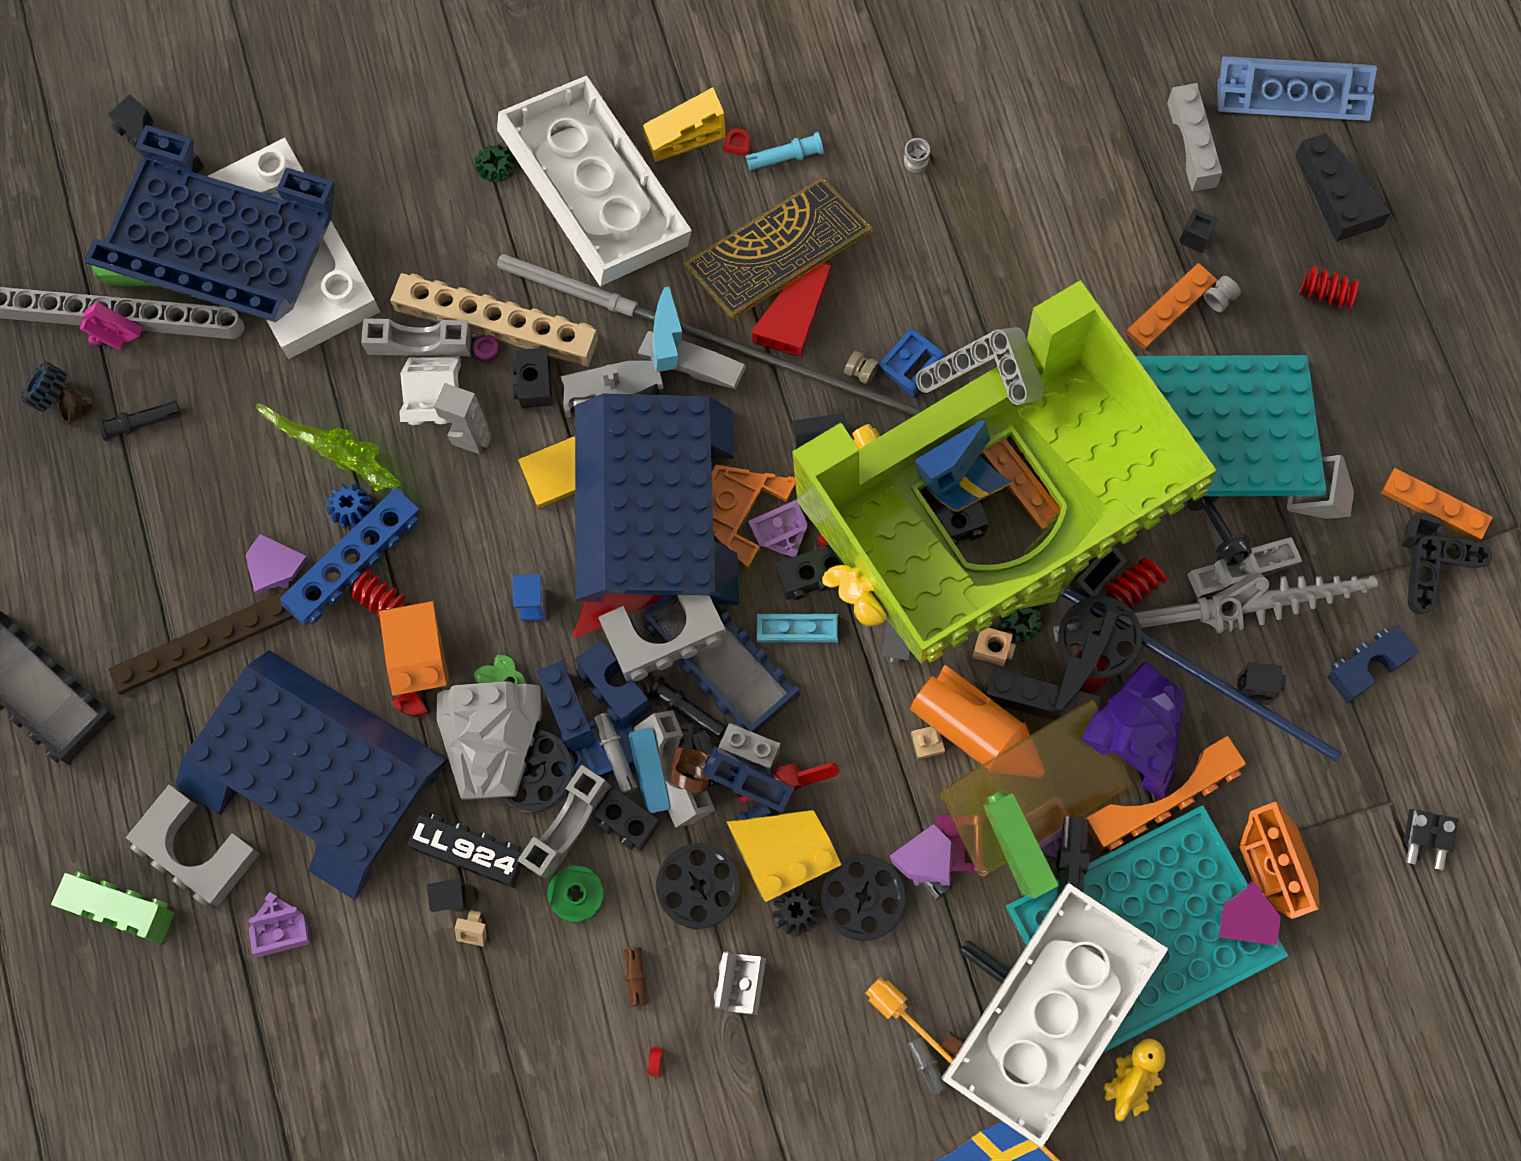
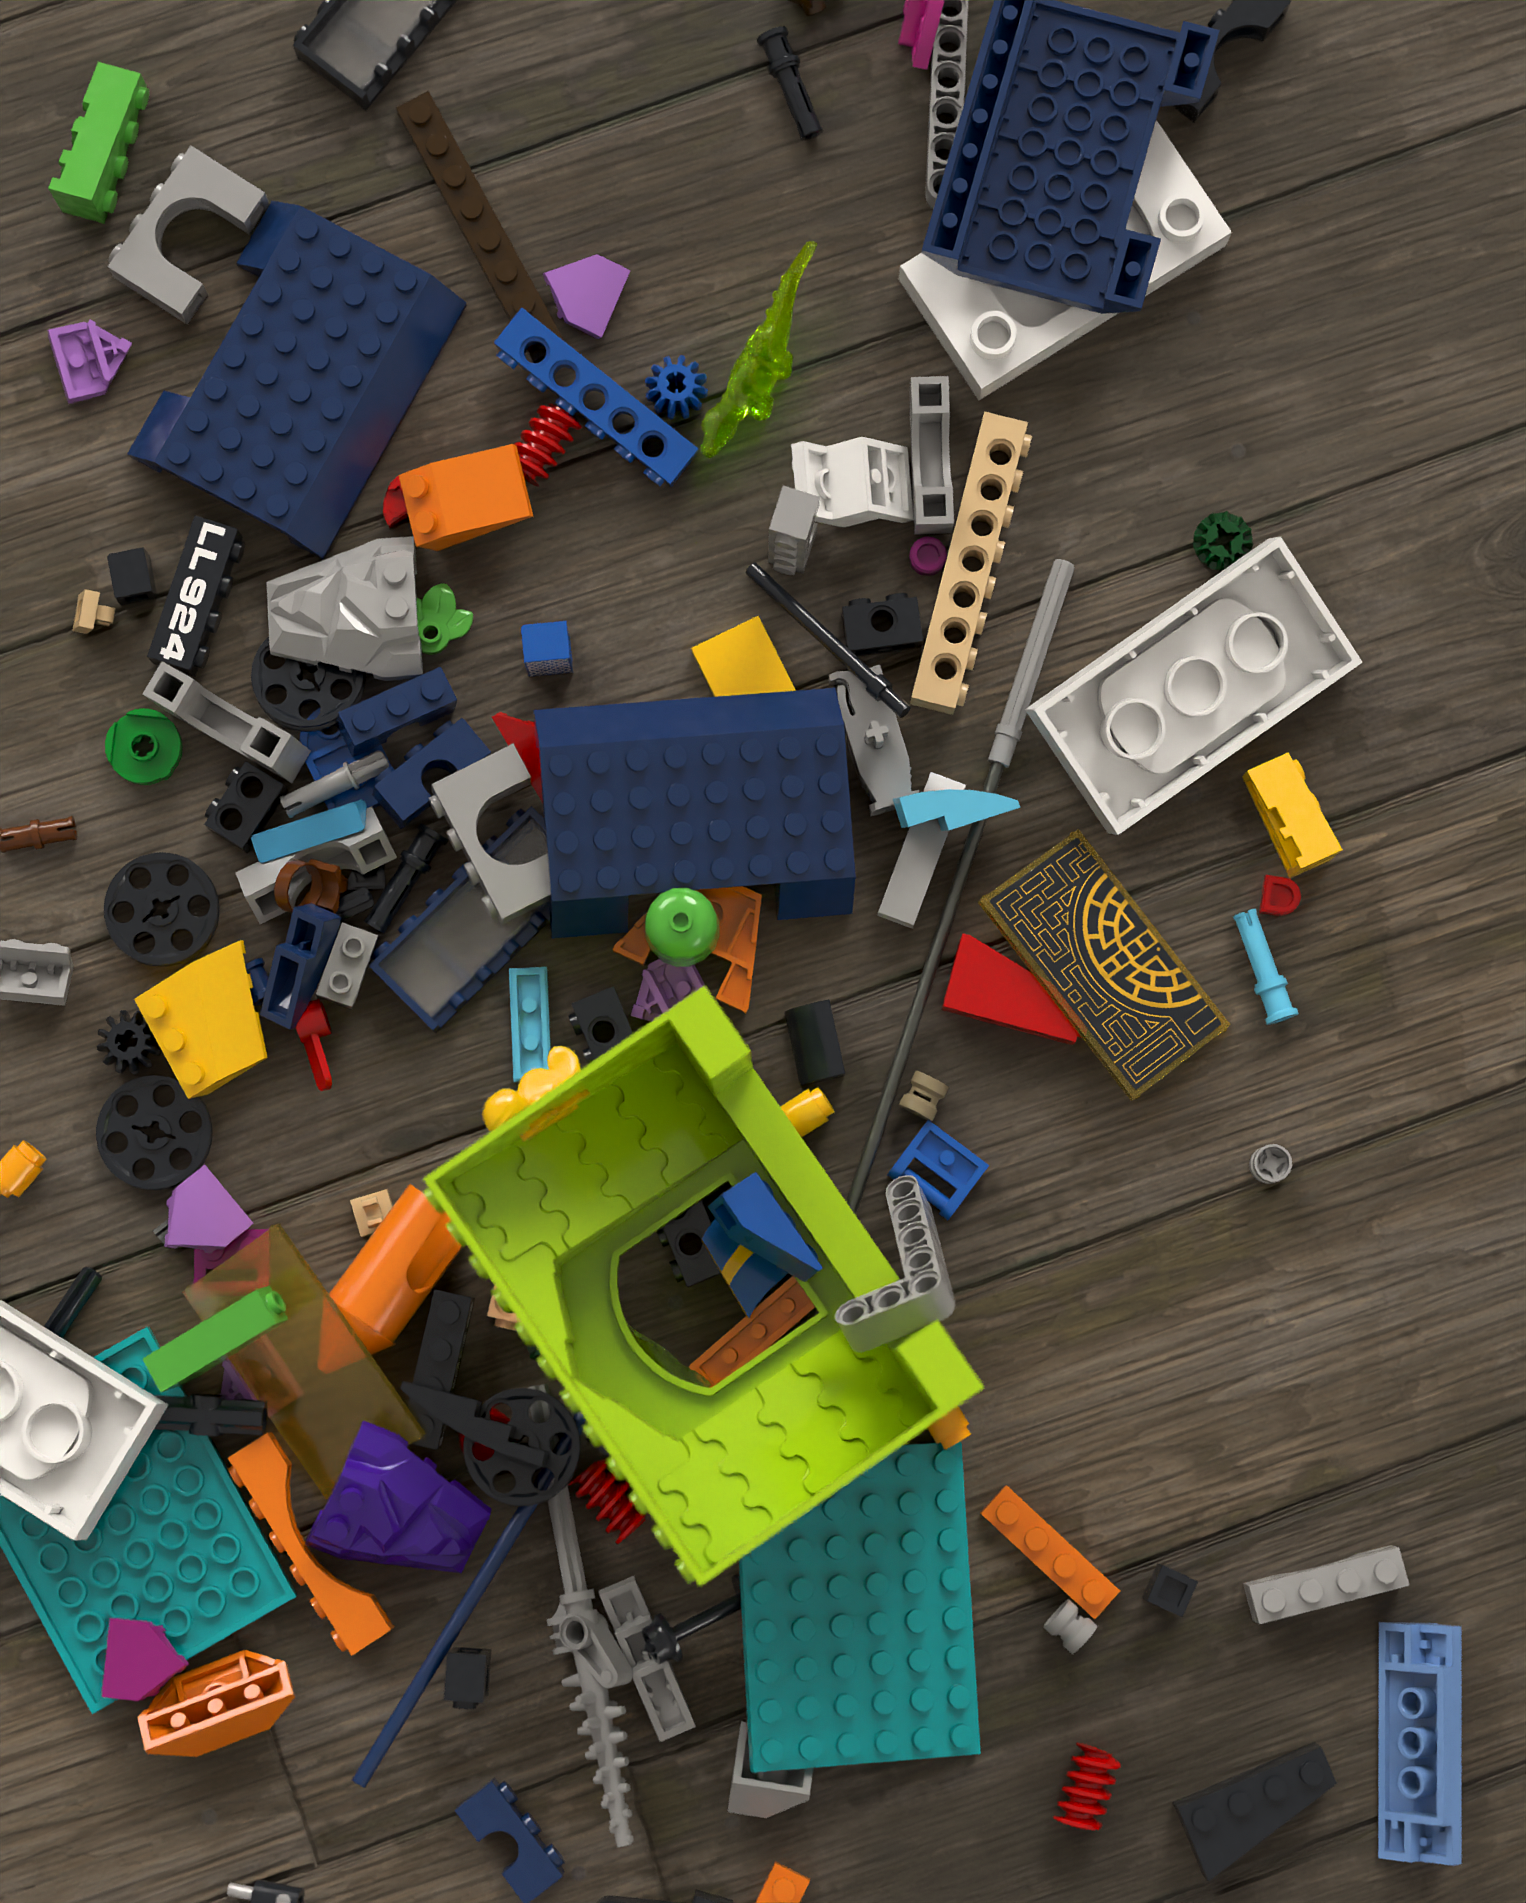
camera: 80 degrees right, 10 degrees up
(577, 374) = (876, 685): none -> black bar
(736, 512) = (681, 927): none -> bright green cylinder

